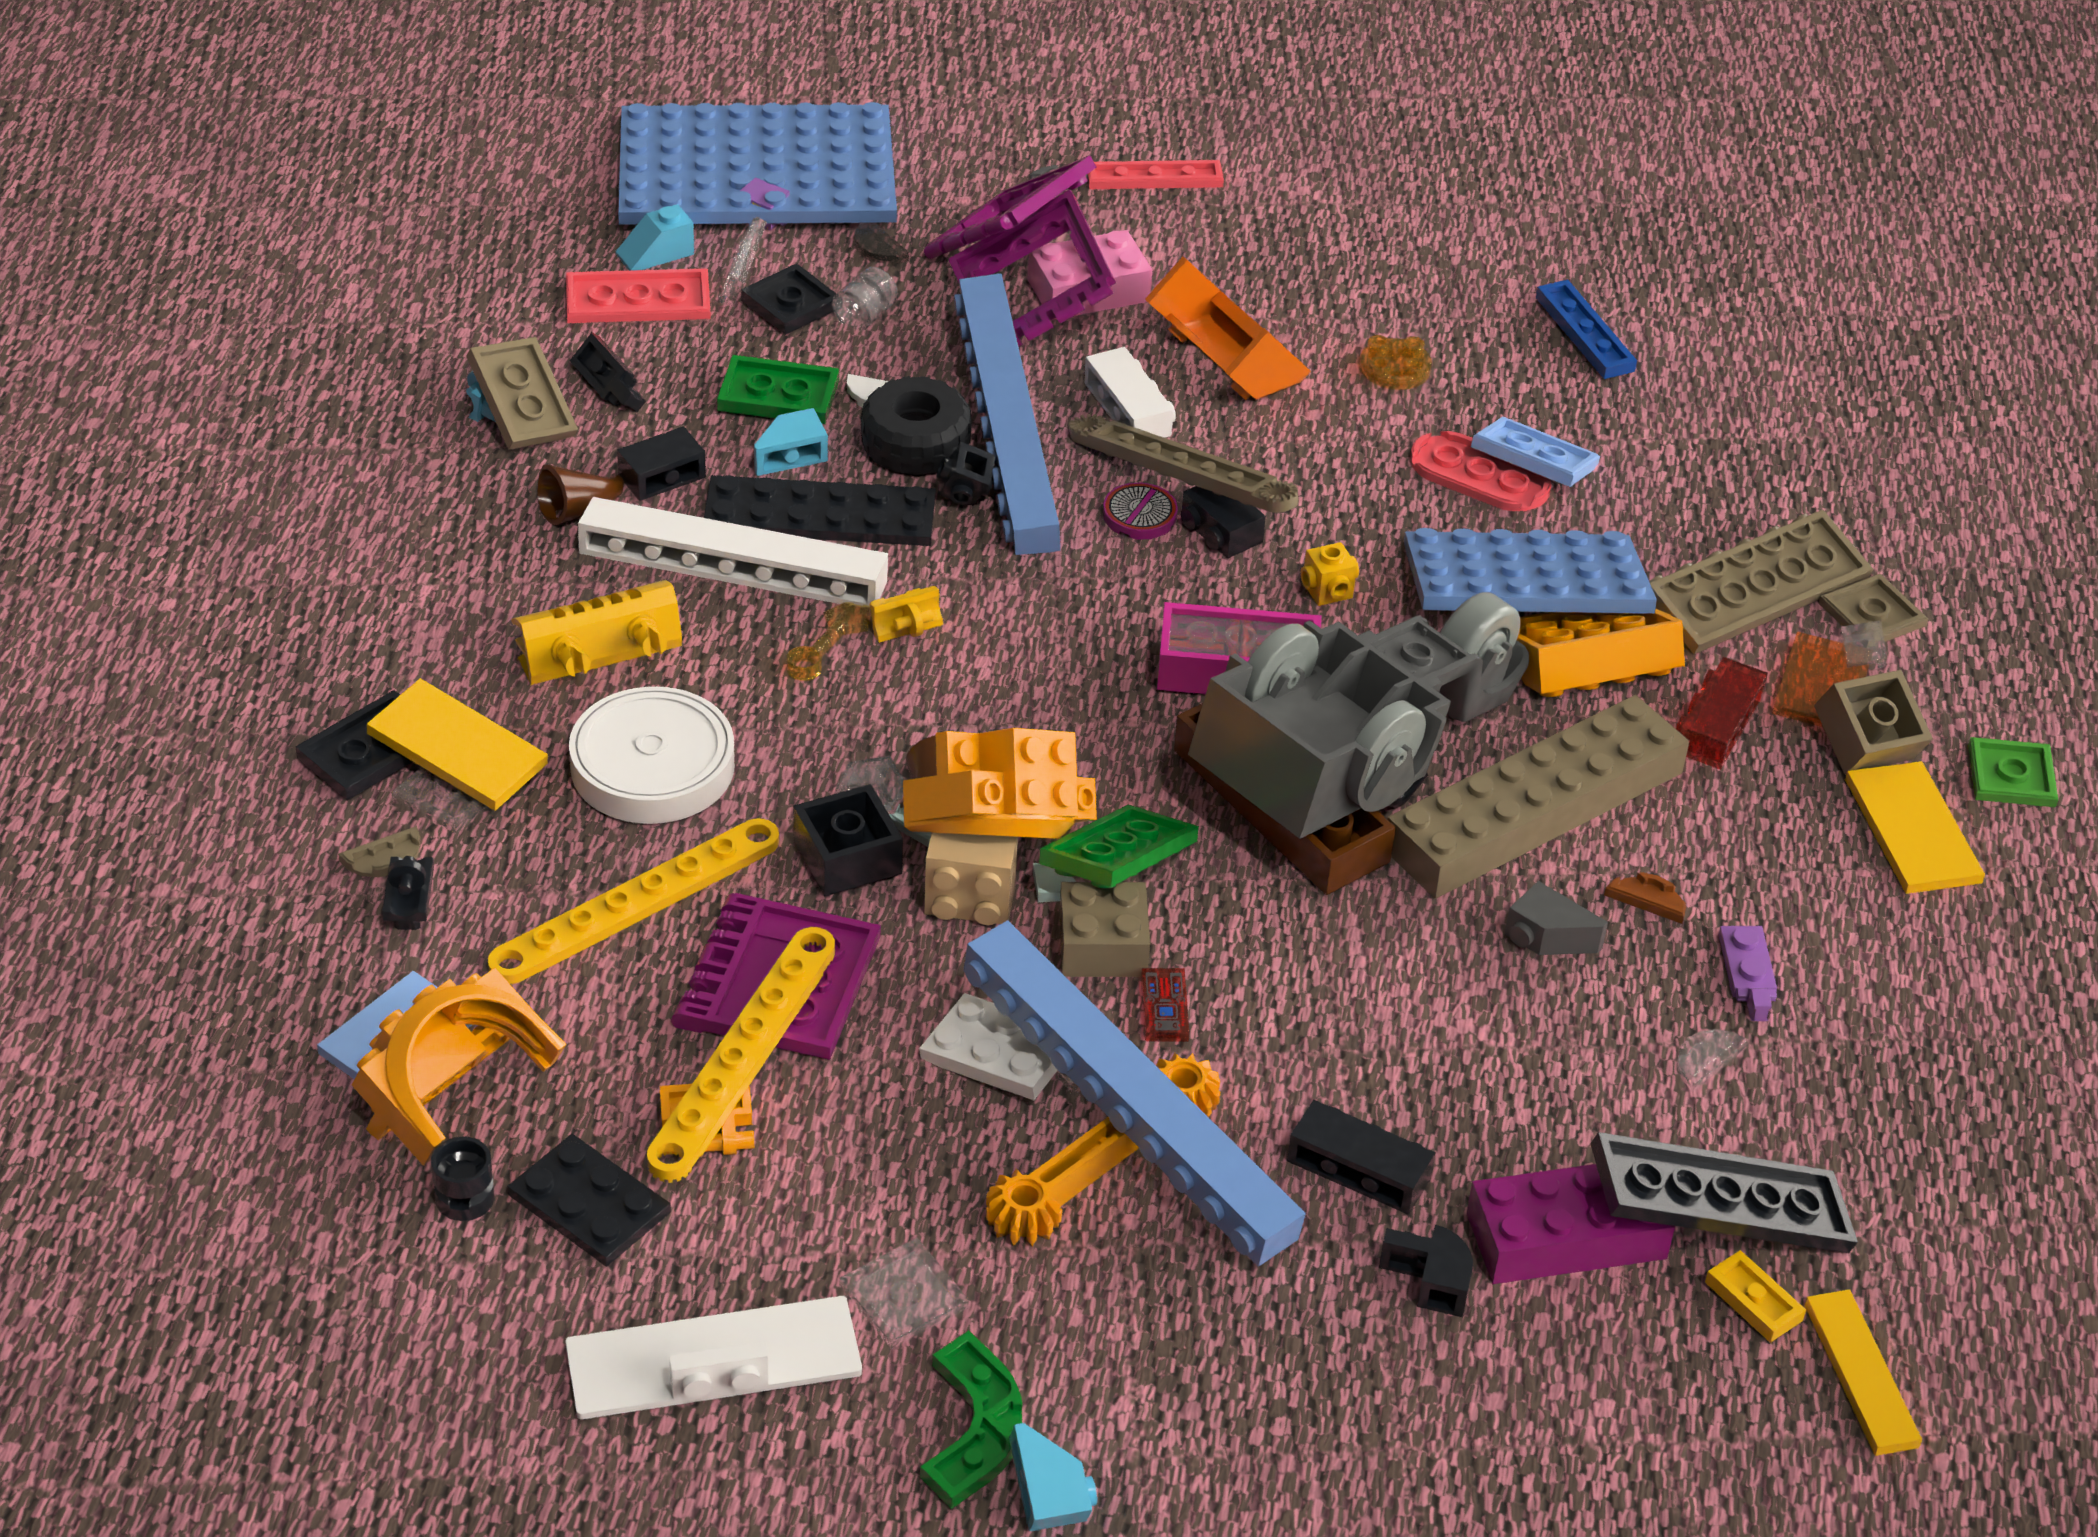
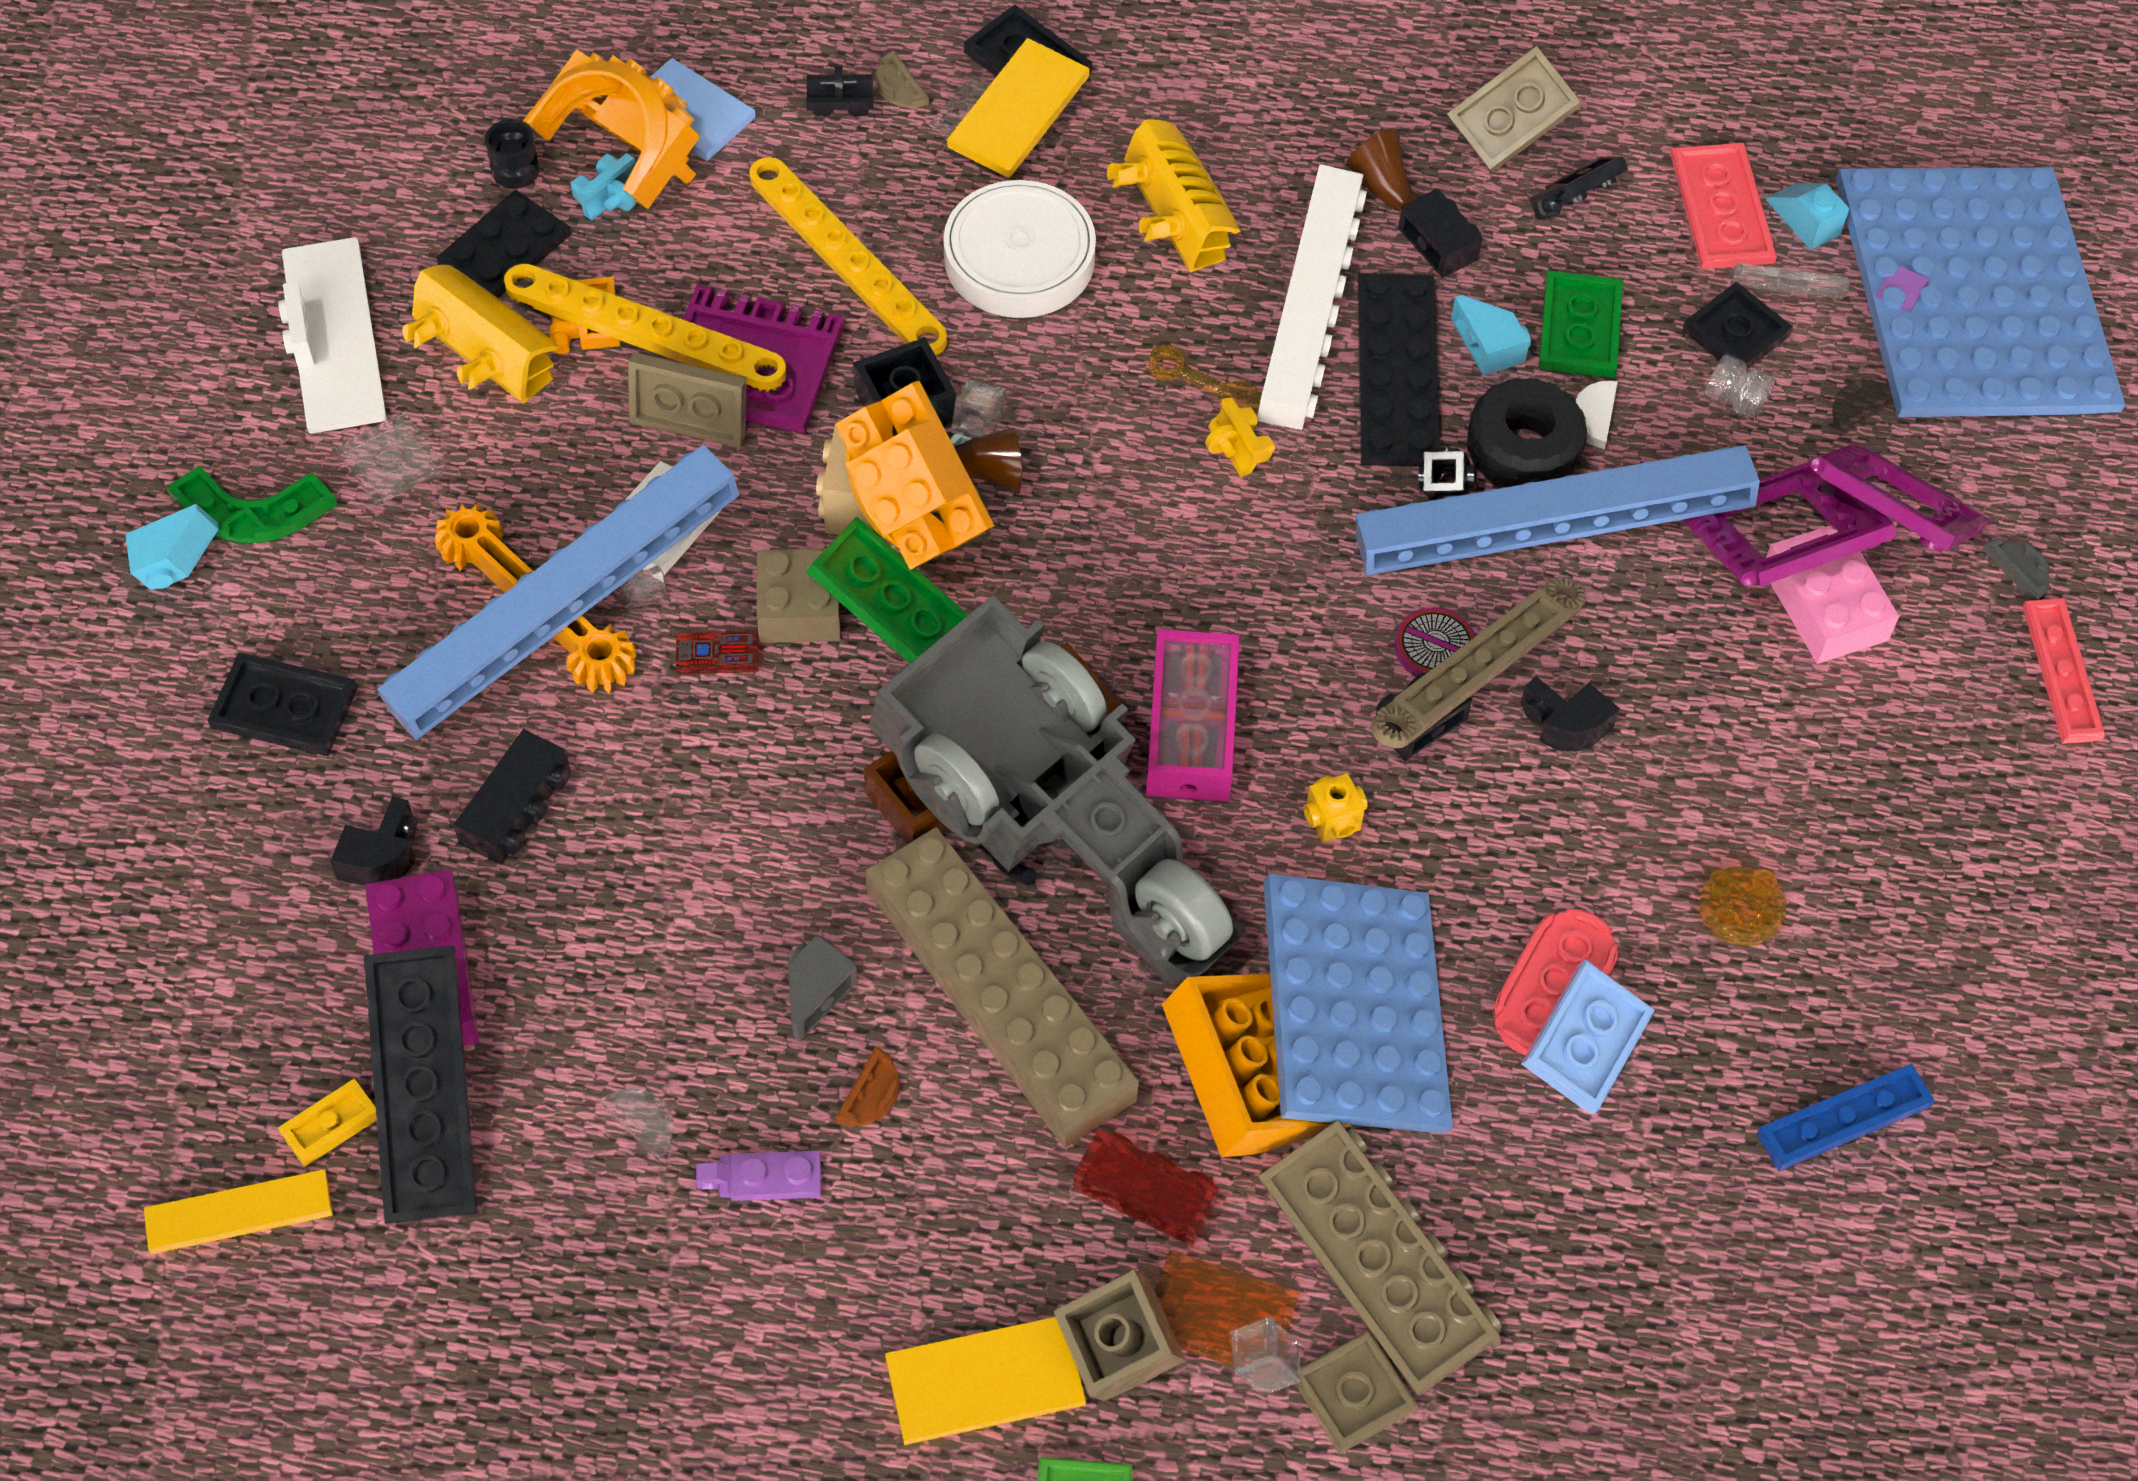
camera: 90 degrees right, 15 degrees up
(524, 1090) = (607, 188): none -> medium azure hips
(741, 1196) = (481, 331): none -> yellow piece
(856, 1006) = (687, 400): none -> dark tan plate
(1128, 392) = (1618, 630): white brick -> none
(1221, 428) = (1570, 723): none -> black brick
(1225, 333) = (1747, 745): orange windscreen -> none
(1251, 1369) = (282, 704): none -> black plate

